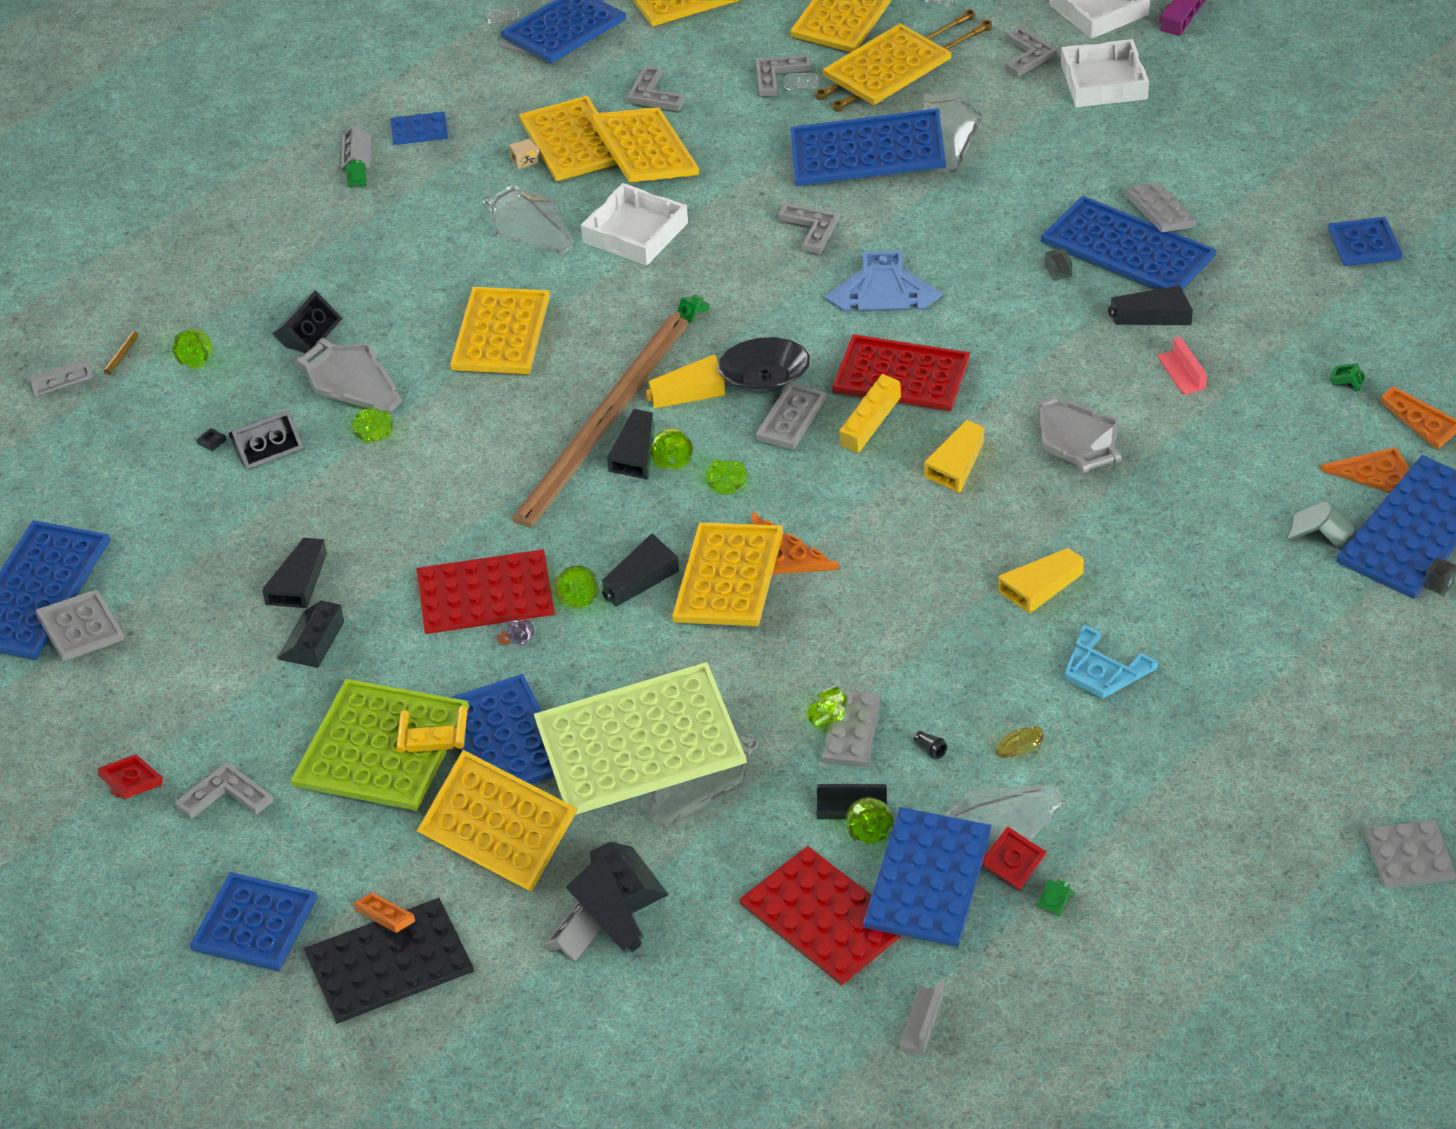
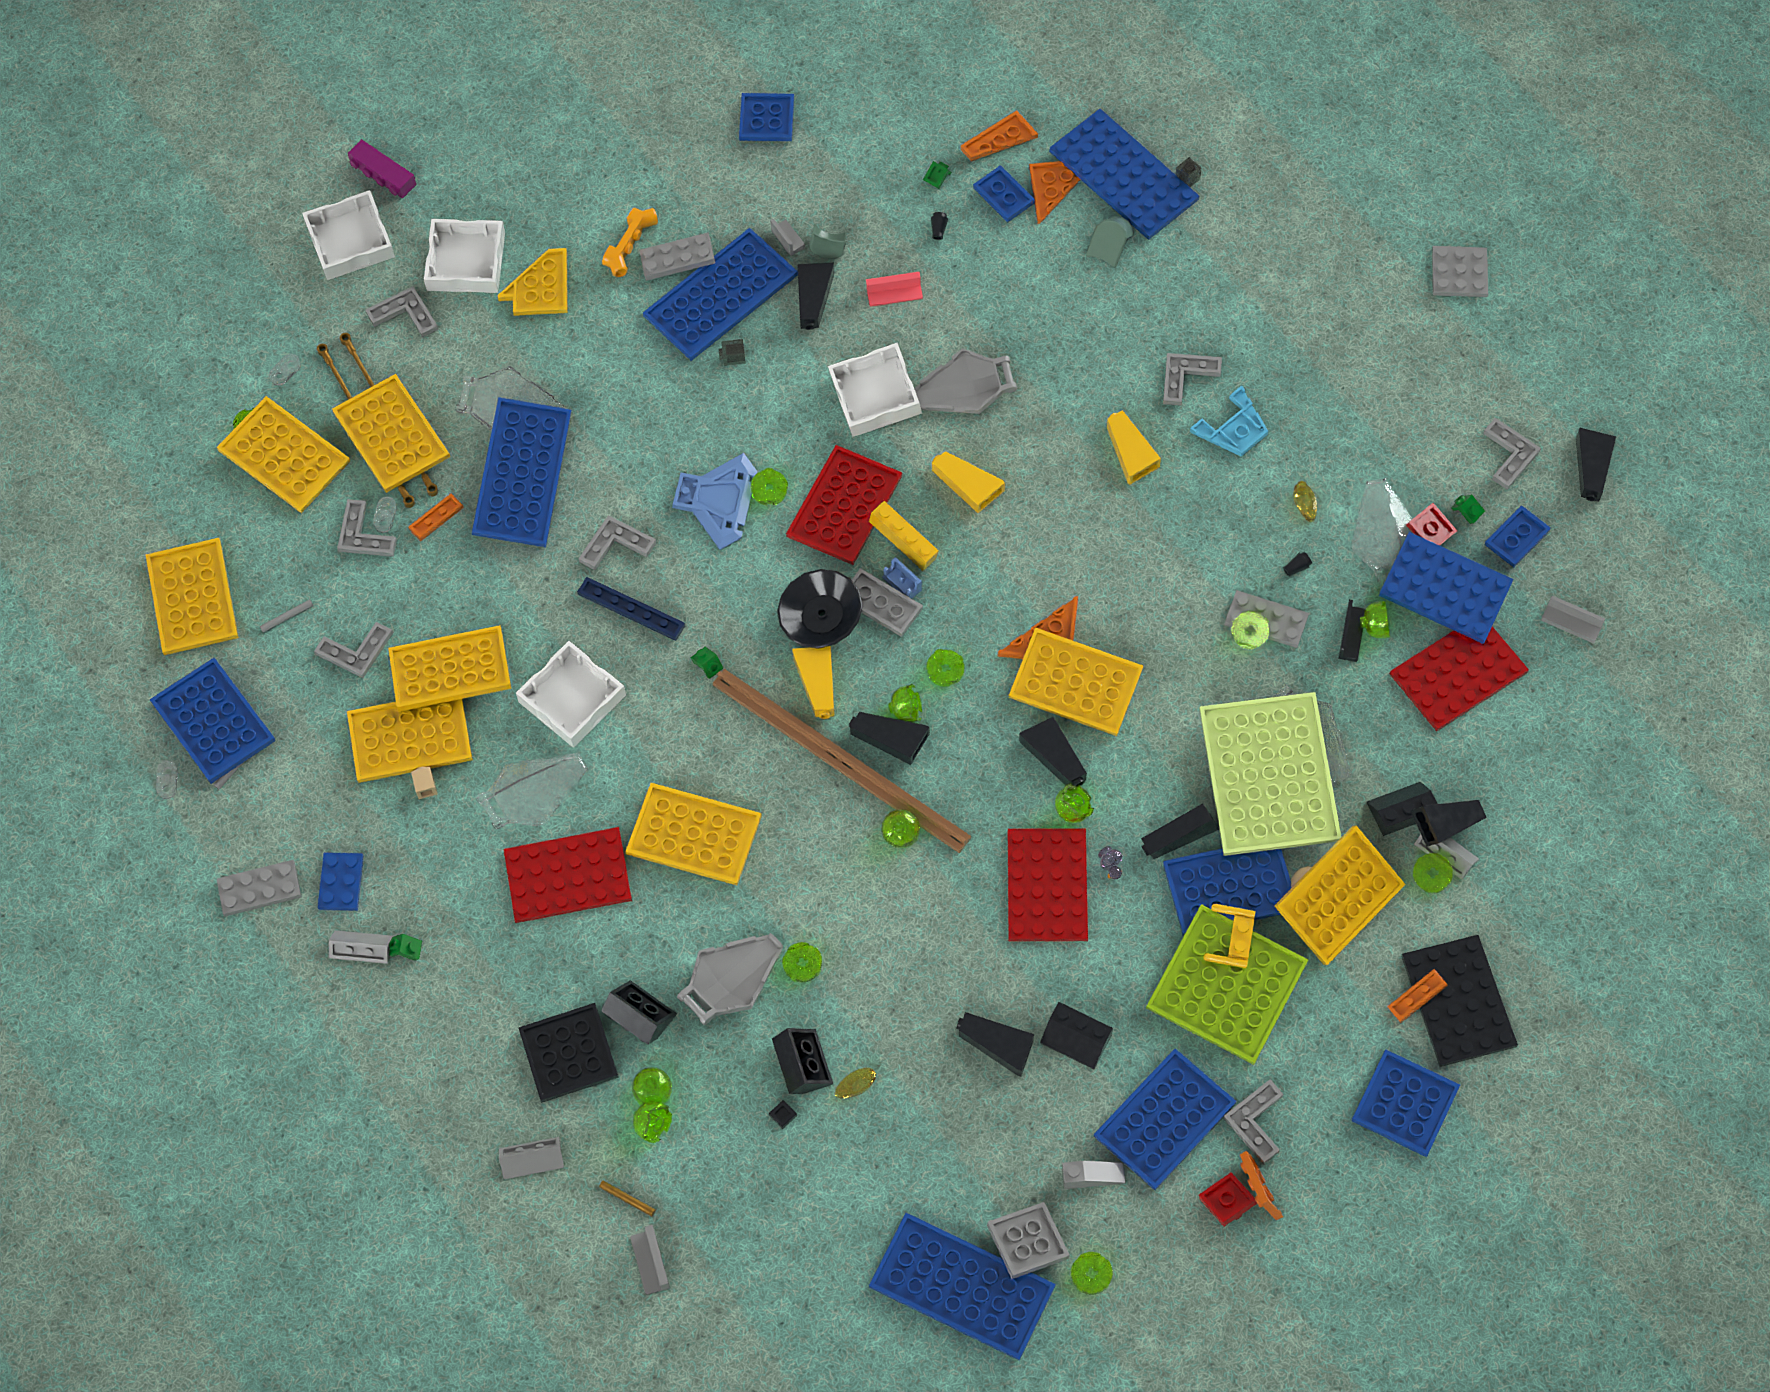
camera: 80 degrees left, 20 degrees up
(59, 686) = (1091, 1285): none -> clear neon green plate
(141, 799) = (1256, 1181): none -> orange wing
(156, 666) = (1091, 1174): none -> light grey slope
(157, 284) = (531, 1158): none -> light grey panel
(222, 717) = (1164, 1119): none -> blue plate
(231, 346) = (651, 1085): none -> clear neon green cylinder
(246, 482) = (855, 1083): none -> clear yellow arm
(261, 289) = (568, 1052): none -> black plate
(406, 85) = (258, 888): none -> light grey plate
(445, 259) = (567, 875): none -> red plate
(527, 465) = (909, 828): none -> clear neon green cylinder
(553, 904) = (1429, 884): none -> clear neon green plate
(556, 677) = (1179, 832): none -> black slope
(695, 57) = (285, 616): none -> light grey bar
(739, 248) = (631, 608): none -> dark blue plate
(807, 112) = (435, 517): none -> orange tile
(823, 428) = (902, 579): none -> medium blue hinge
(906, 308) = (769, 496): none -> clear neon green plate
(1030, 950) = (1517, 536): none -> blue plate
(1045, 367) = (875, 390): none -> white tile
(1087, 128) = (541, 286): none -> yellow wing
(1144, 168) = (615, 256): none -> light orange plate
(1153, 944) = (1522, 452): none -> light grey plate
(1161, 1017) = (1593, 458): none -> black slope
(1165, 604) = (1182, 364): none -> light grey plate
(1217, 278) = (787, 236): none -> light grey panel
(1220, 305) = (826, 244): none -> sand green piece
(1280, 387) = (939, 222): none -> black cone
(1345, 431) = (1004, 193): none -> blue plate

